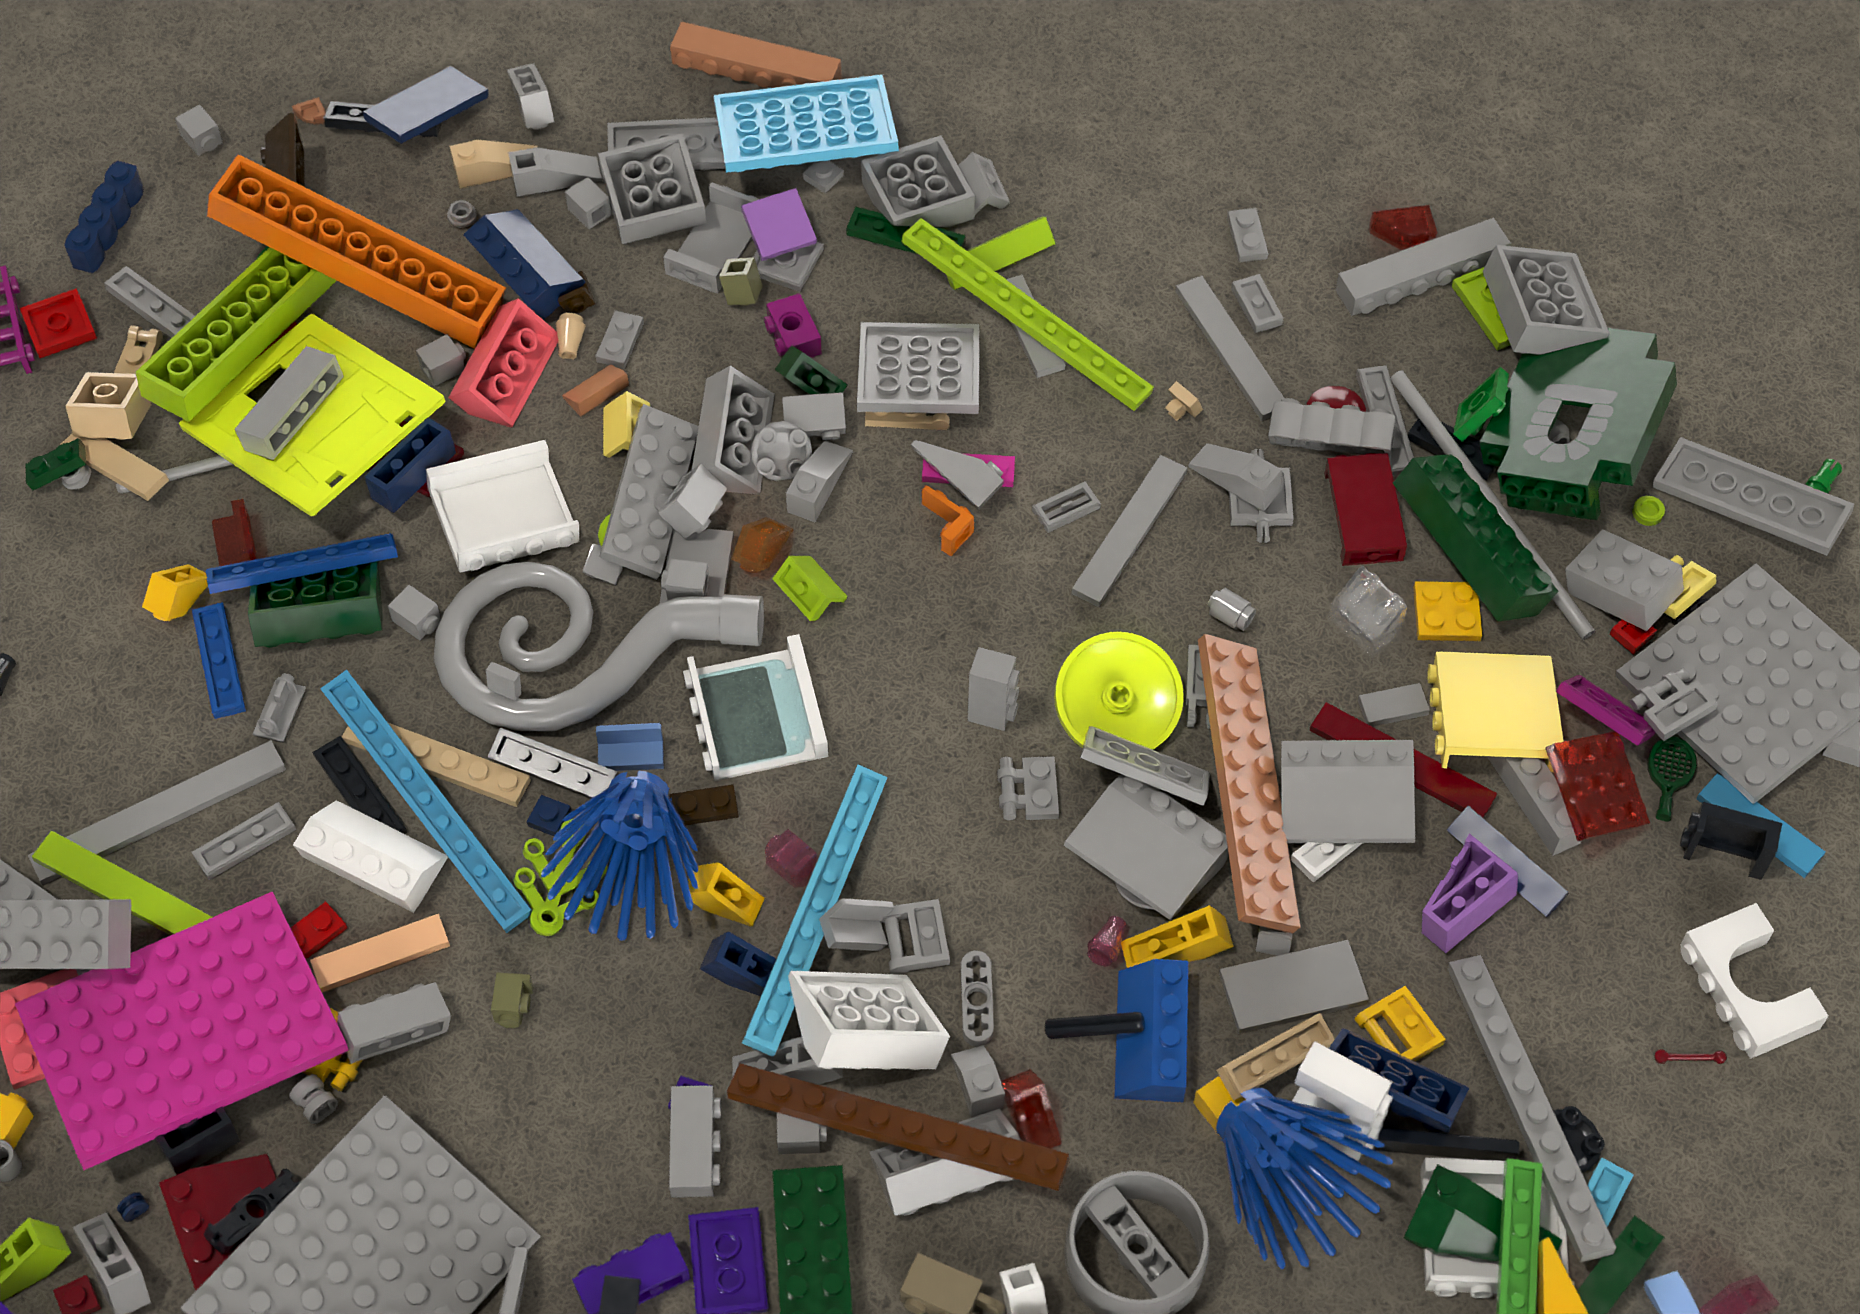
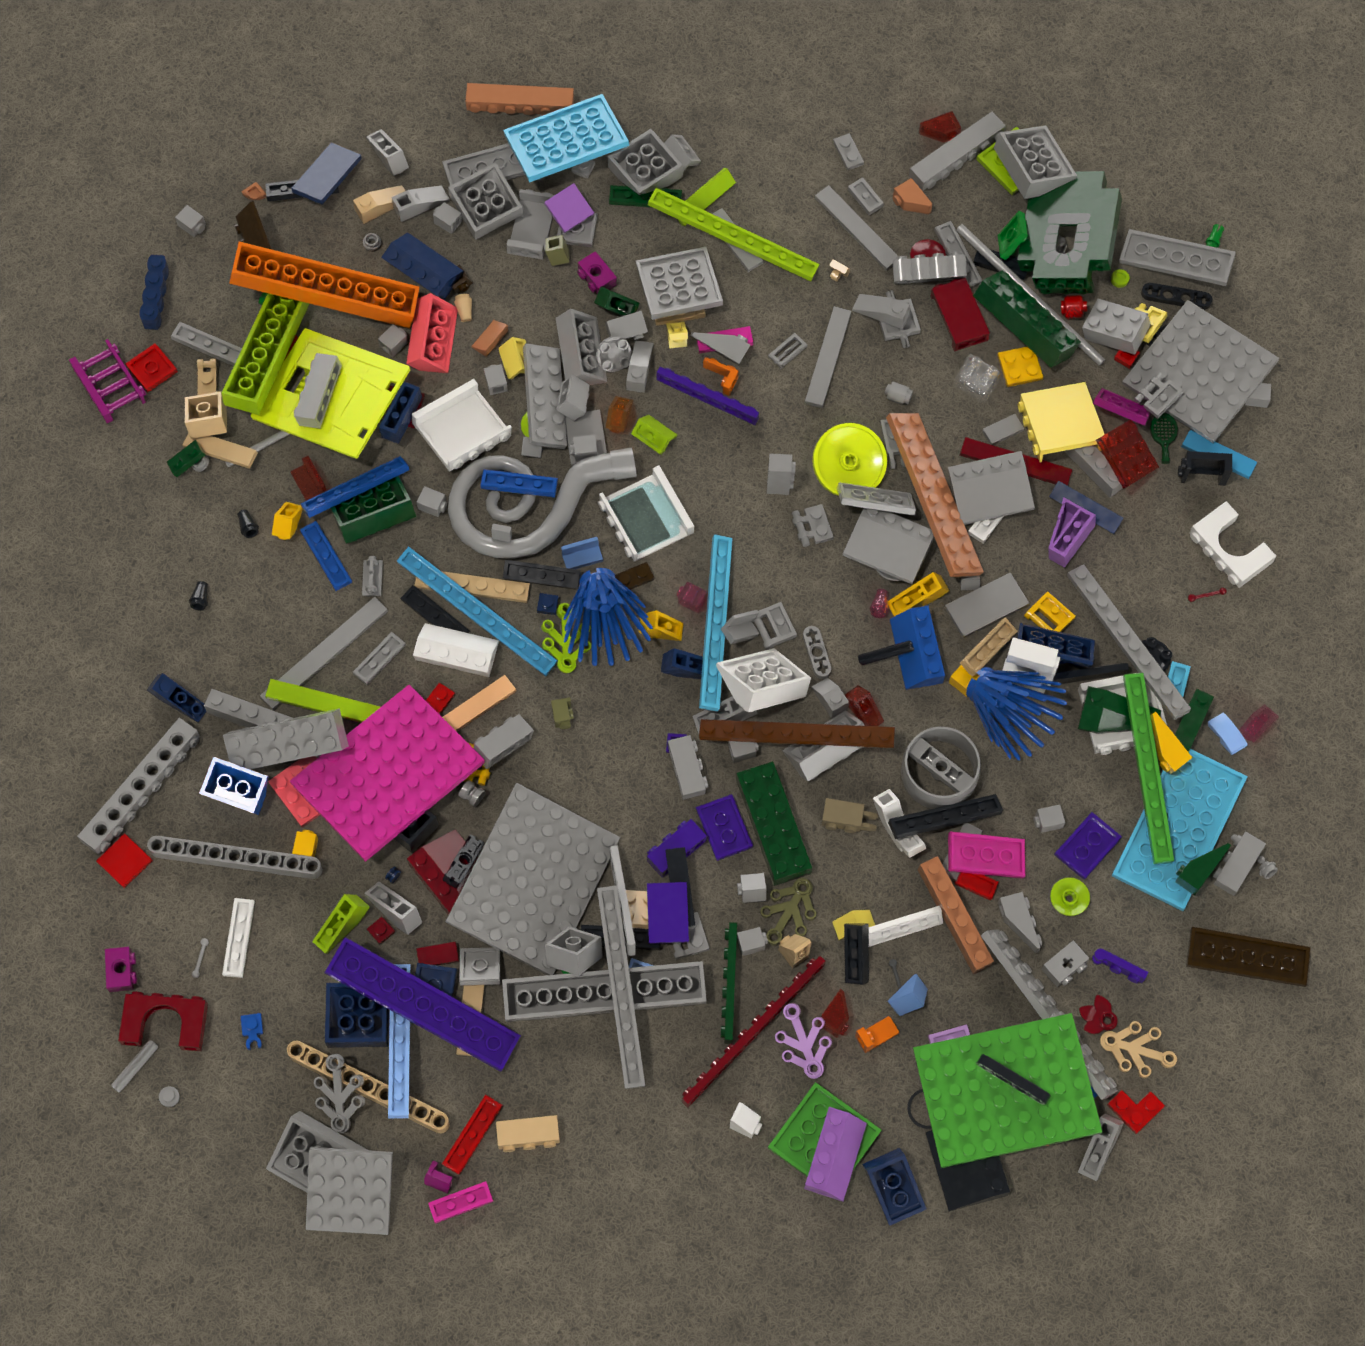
camera: 15 degrees left, 10 degrees up
(112, 585) = (248, 526): none -> black cone
(561, 612) = (519, 483): none -> blue tile
(581, 450) = (495, 379): none -> light grey brick
(619, 339) = (494, 302): light grey plate -> none
(893, 446) = (677, 334): none -> light yellow slope
(907, 541) = (708, 396): none -> dark purple plate
(1331, 320) = (911, 198): none -> nougat slope
(1559, 537) = (1073, 307): none -> red head
(1740, 553) = (1176, 293): none -> black beam

